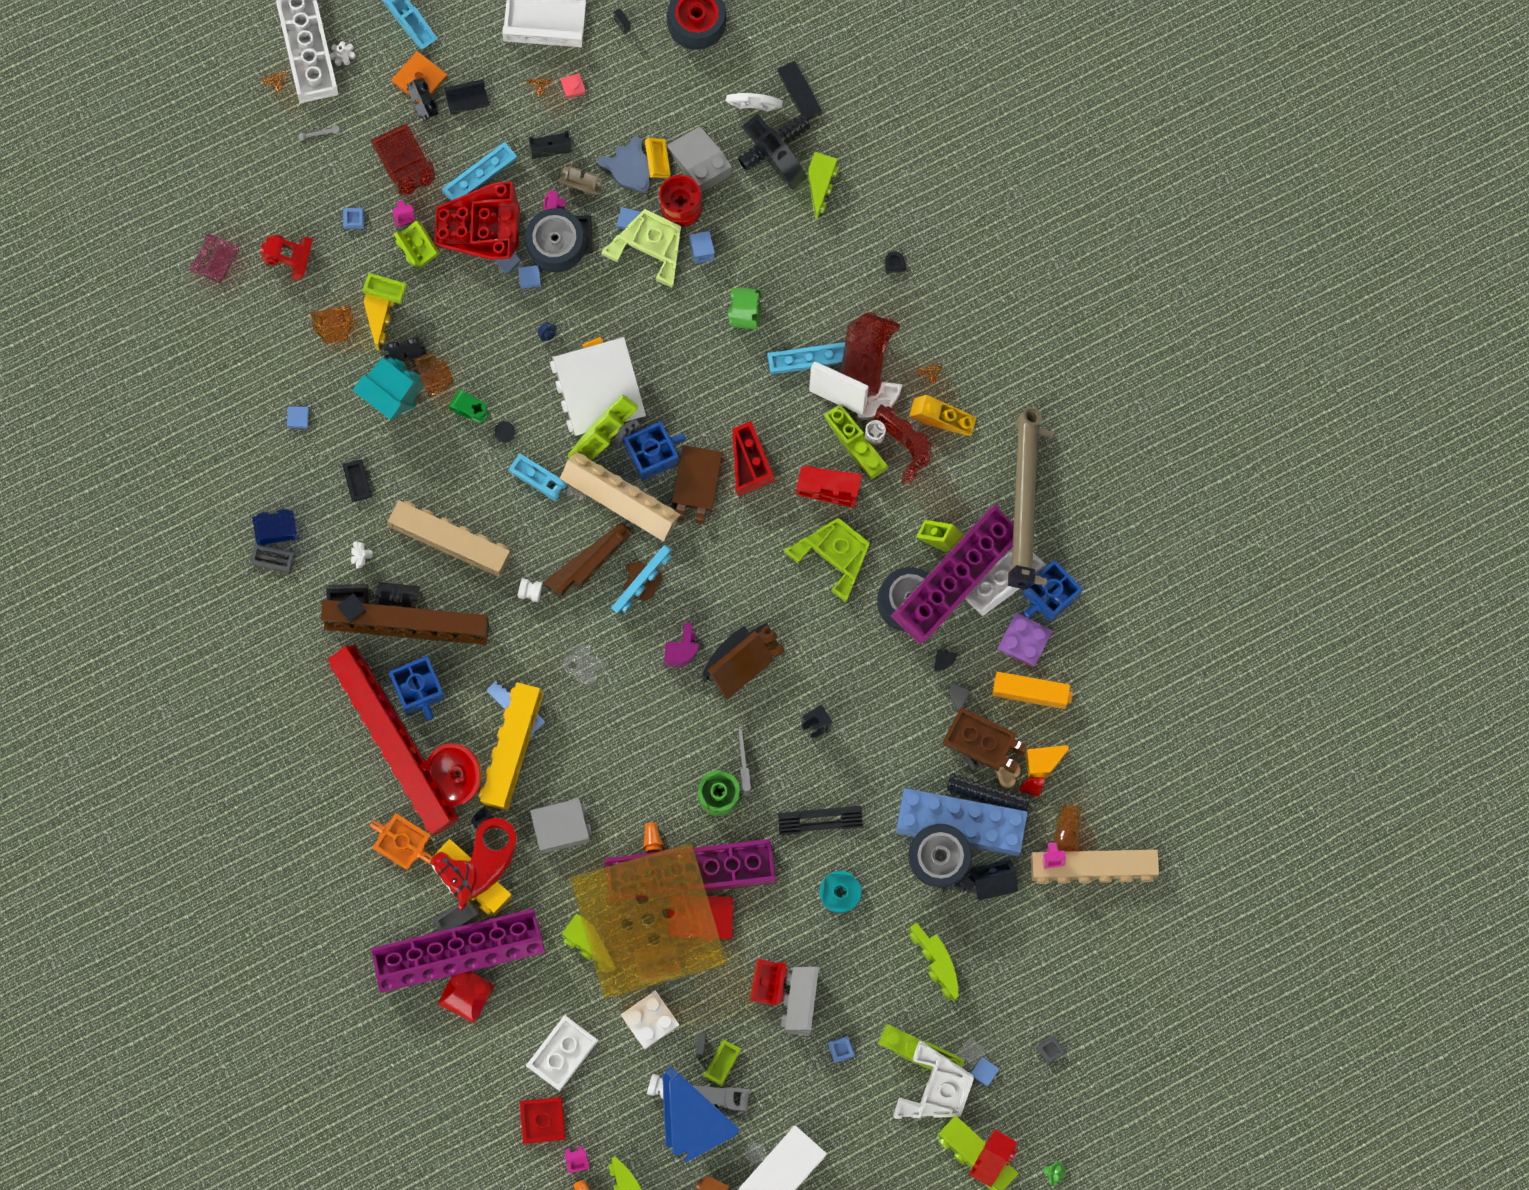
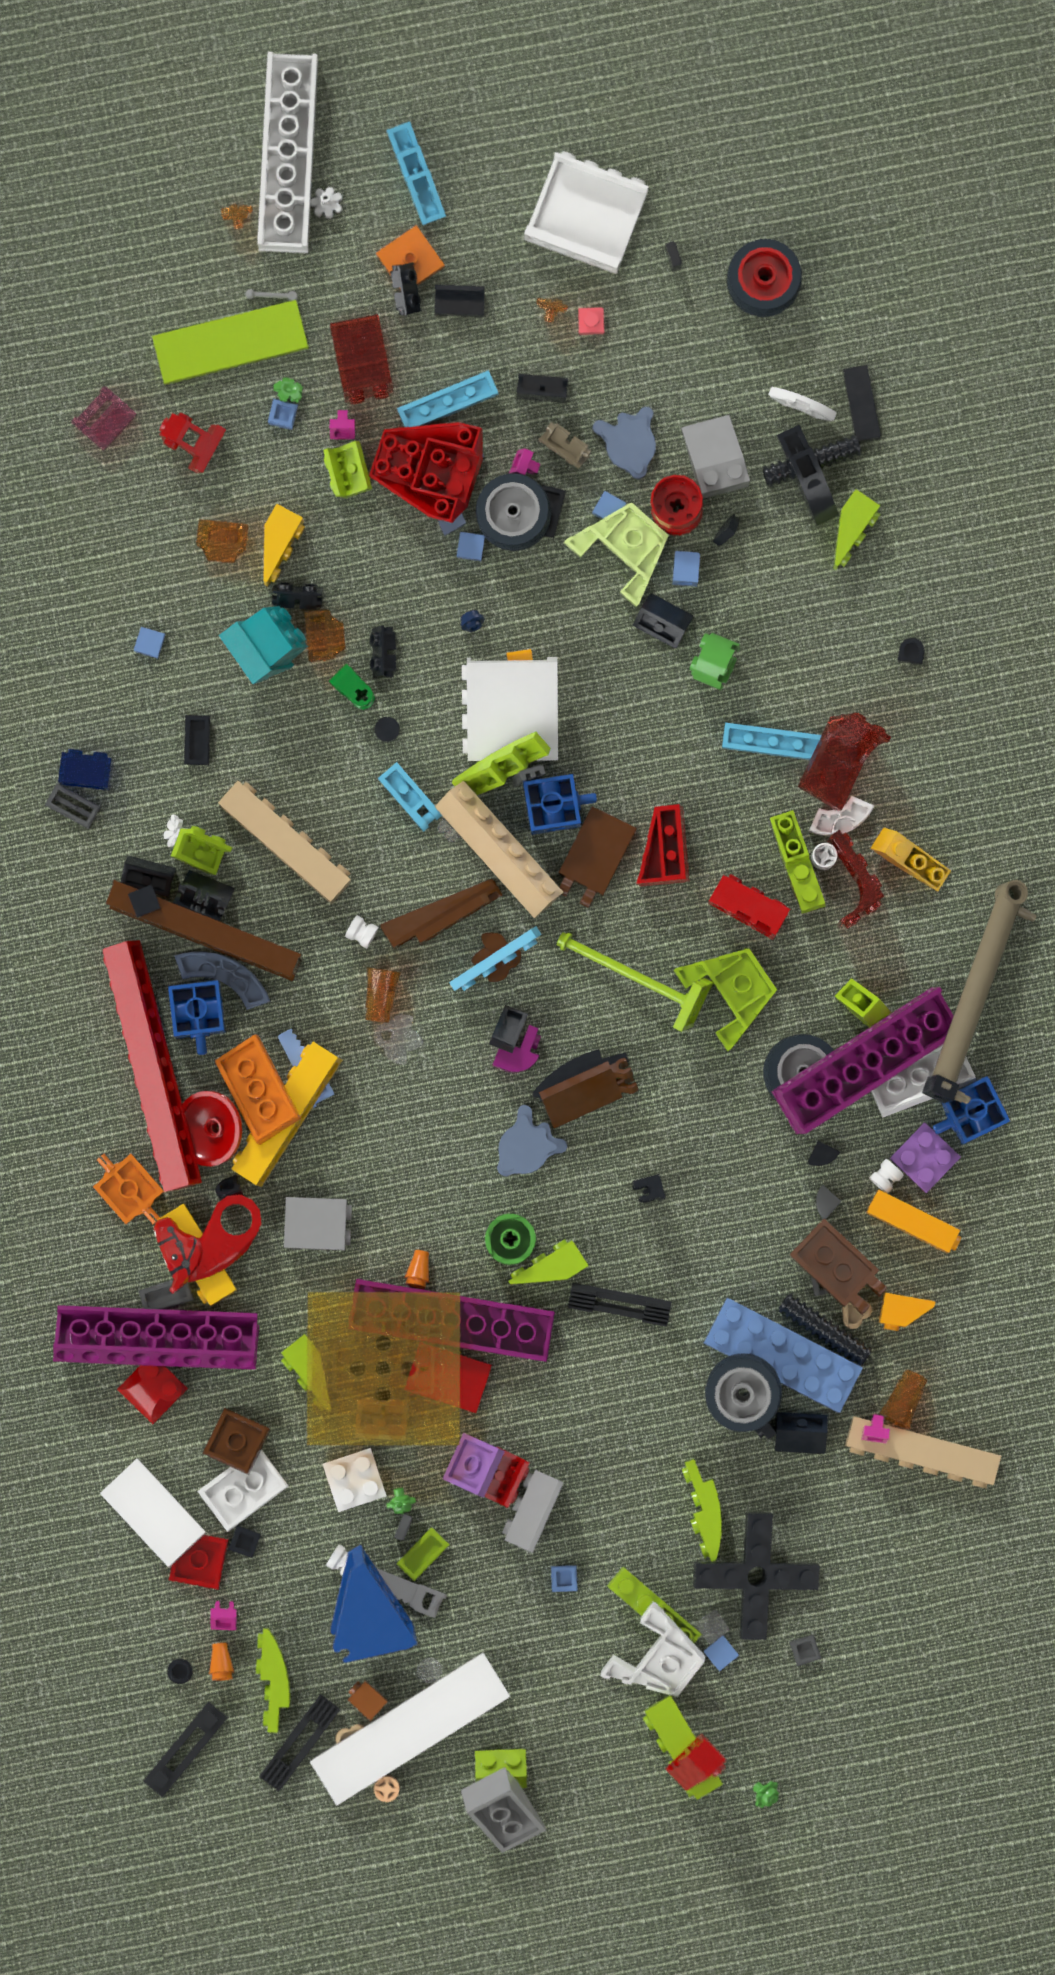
camera: 20 degrees right, 10 degrees up
(296, 176) = (230, 342): none -> lime tile
(352, 198) = (288, 390): none -> bright green plant
(384, 288) = (293, 516): lime tile -> none
(384, 561) = (199, 849): none -> lime bracket
(435, 650) = (226, 971): none -> sand blue tile
(481, 365) = (381, 640): none -> black hinge
(483, 733) = (257, 1089): none -> orange tile
(495, 1092) = (153, 1512): none -> white tile
(546, 1016) = (236, 1441): none -> reddish brown tile
(559, 632) = (380, 994): none -> clear orange plant
(575, 1095) = (244, 1541): none -> black tile
(657, 158) = (666, 441): yellow tile -> none
(668, 631) = (508, 1029): none -> black tile
(692, 1025) = (401, 1503): none -> bright green plant
(695, 291) = (663, 620): none -> black panel
(708, 719) = (526, 1146): none -> sand blue tile
(724, 211) = (727, 530): none -> black tile
(742, 978) = (473, 1465): none -> medium lavender plate
(744, 772) = (547, 1222): light grey piece -> none
(761, 805) = (557, 1266): none -> lime slope
(805, 570) = (690, 1003): none -> lime tile
(833, 882) = (623, 1408): teal plate -> none
(838, 388) = (795, 792): white tile -> none
(931, 371) = (912, 799): clear orange plant -> none
(999, 661) = (886, 1176): none -> white wheel
(1008, 997) = (774, 1577): none -> black piece
(1032, 786) = (879, 1336): red tile -> none

